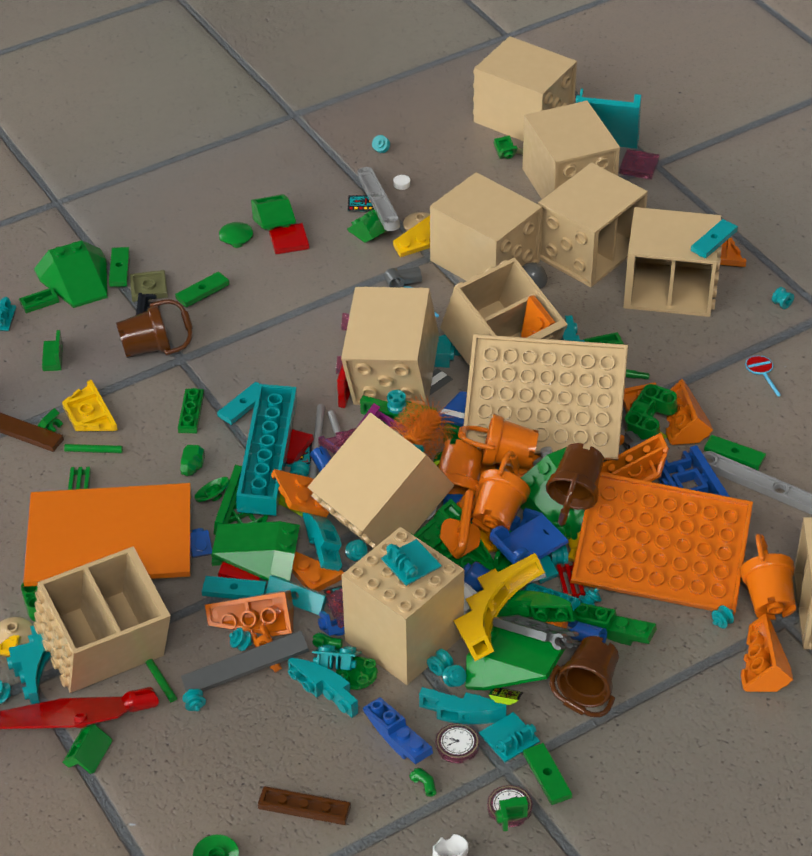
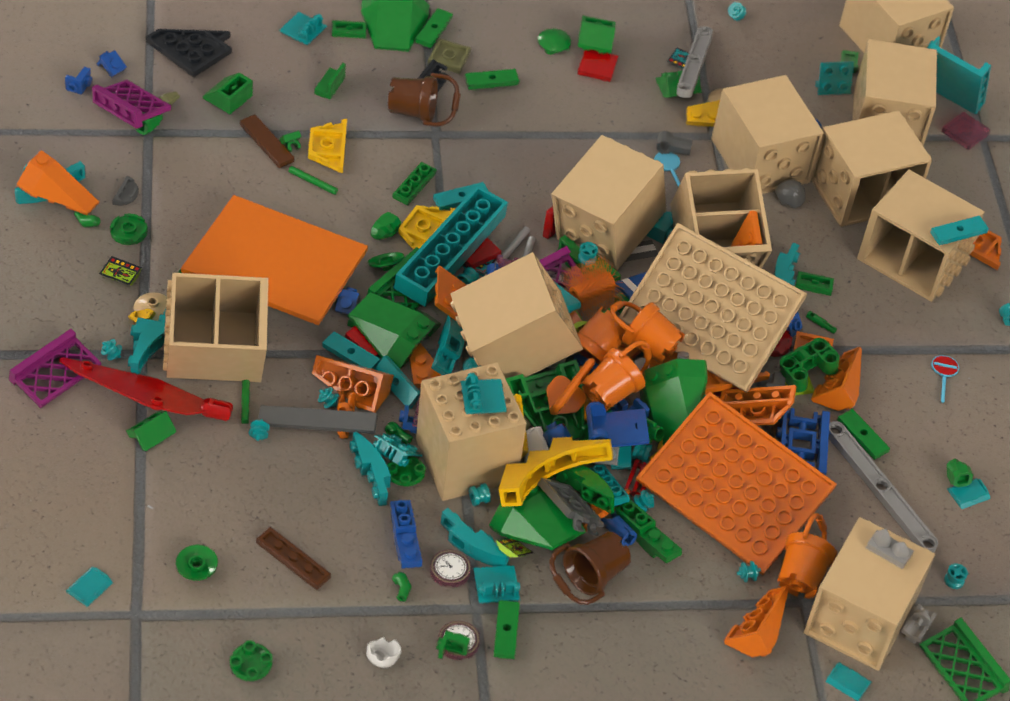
camera: 20 degrees right, 5 degrees up
(87, 472) = (288, 195): green tile -> none
(226, 444) = (422, 224): none -> yellow wing
(401, 182) = (733, 55): white tile -> none
(454, 676) = (483, 511): teal wheel -> none
(504, 164) = (835, 78): none -> teal hinge
(576, 479) = (684, 392): reddish brown piece -> none

